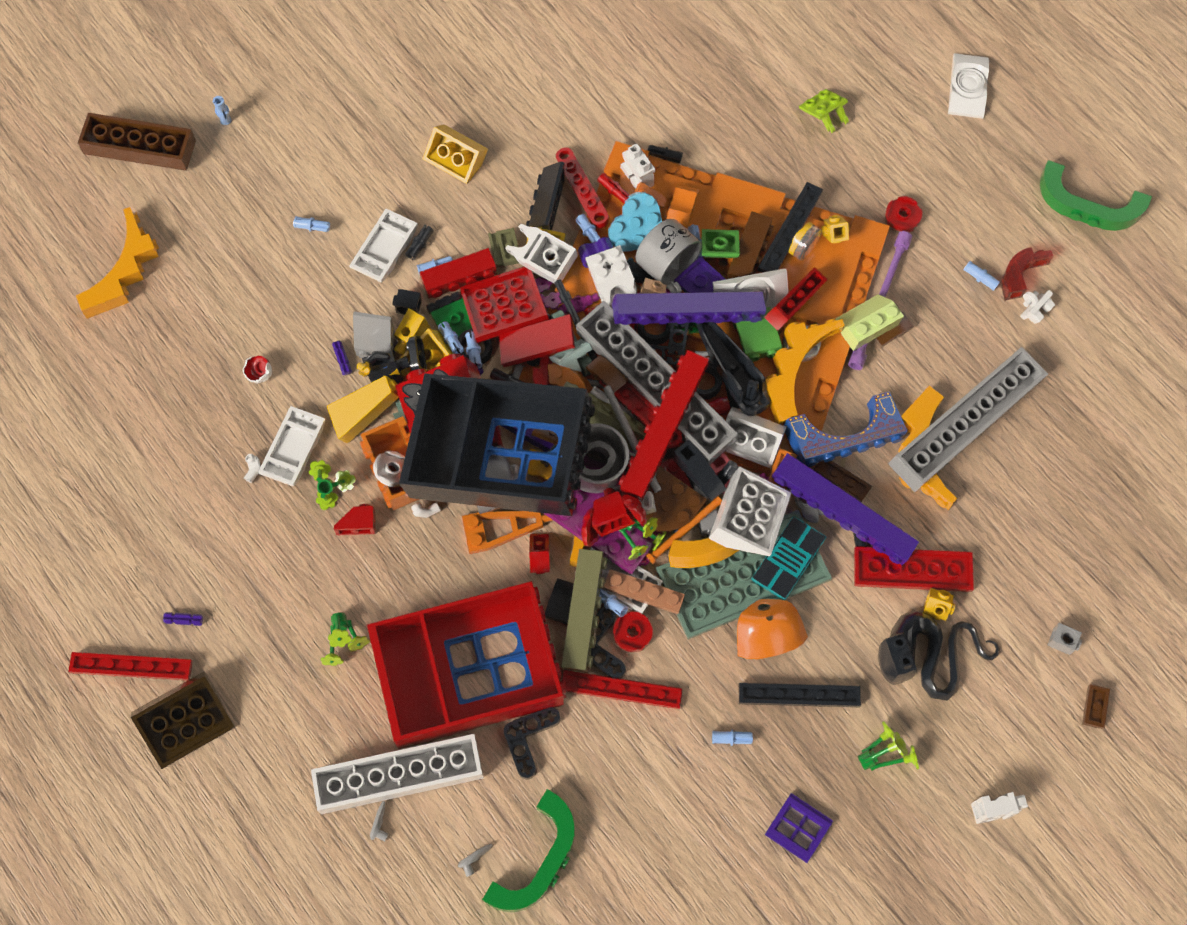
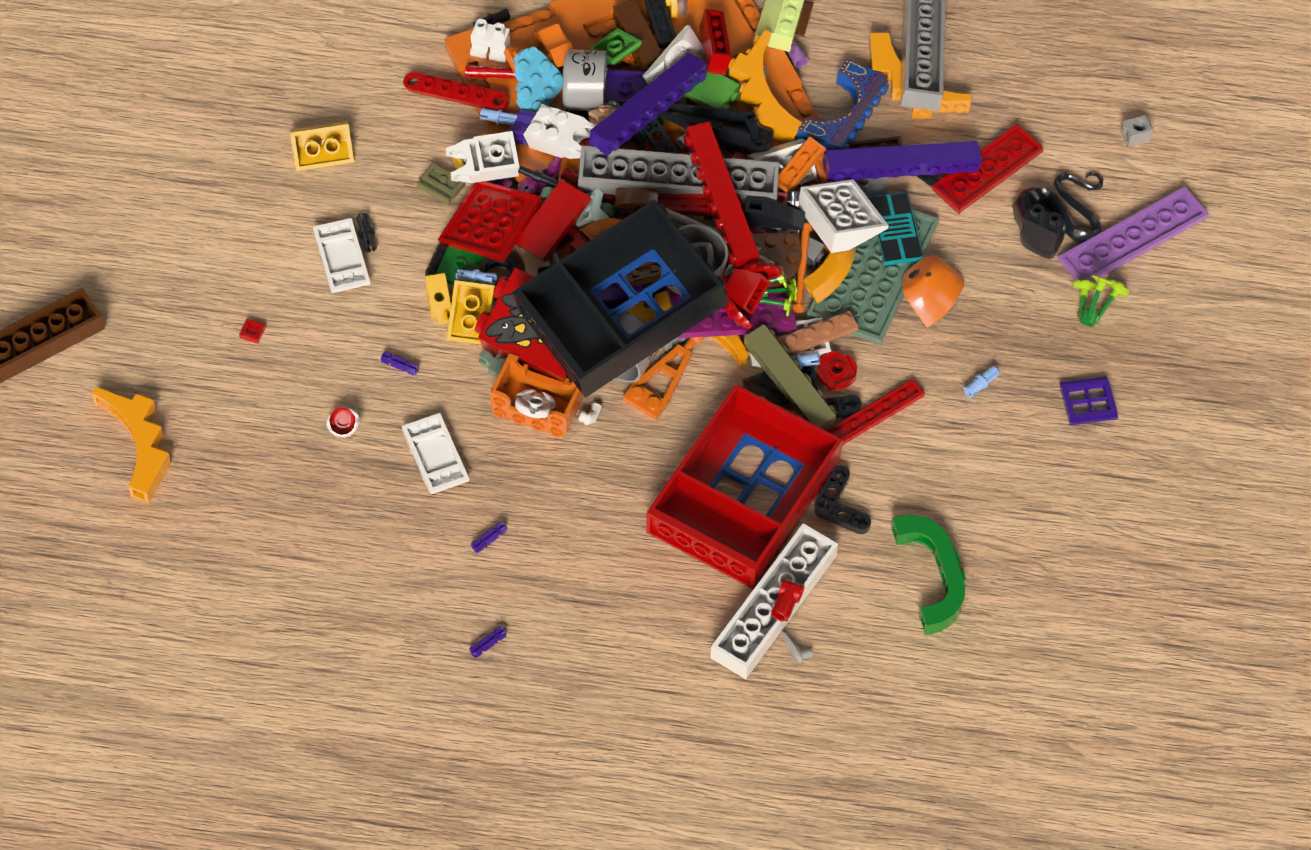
camera: 45 degrees left, 10 degrees down
(130, 666) = (485, 706): red plate -> none
(182, 720) = (569, 705): dark brown slope -> none
(221, 110) = (88, 256): light blue pin -> none
(254, 466) = (419, 494): white arm -> none
(265, 540) = (489, 536): none -> dark purple axle
(274, 251) = (252, 331): none -> red tile
(311, 224) = (261, 286): light blue axle -> none
(320, 471) = (504, 449): lime plant -> none
(340, 637) = (634, 542): lime plant -> none
(357, 521) = (549, 463): red slope -> none
(361, 407) = (461, 382): yellow slope -> none
(373, 334) = (416, 321): light grey slope -> none
(383, 364) = (452, 343): black torso -> none
(400, 783) = (788, 595): none -> red piece
(407, 300) = (409, 281): black brick -> none
(417, 353) = (458, 301): black plate -> none
(424, 266) = (398, 240): light blue axle -> none
(458, 273) = (425, 230): red brick -> none
(466, 862) = (886, 619): light grey bar -> none
(473, 349) = (499, 267): light blue pin -> none
(539, 553) = (711, 373): red slope -> none
(547, 197) = (436, 119): black slope -> none
(759, 448) = (800, 164): none -> orange plate
(799, 695) = (997, 315): black plate -> none
(939, 604) = (1030, 175): yellow brick -> none
(973, 724) = (1134, 236): none -> medium lavender plate
(1001, 807) = (1202, 276): white hips -> none
(1096, 706) = (1201, 158): reddish brown plate -> none

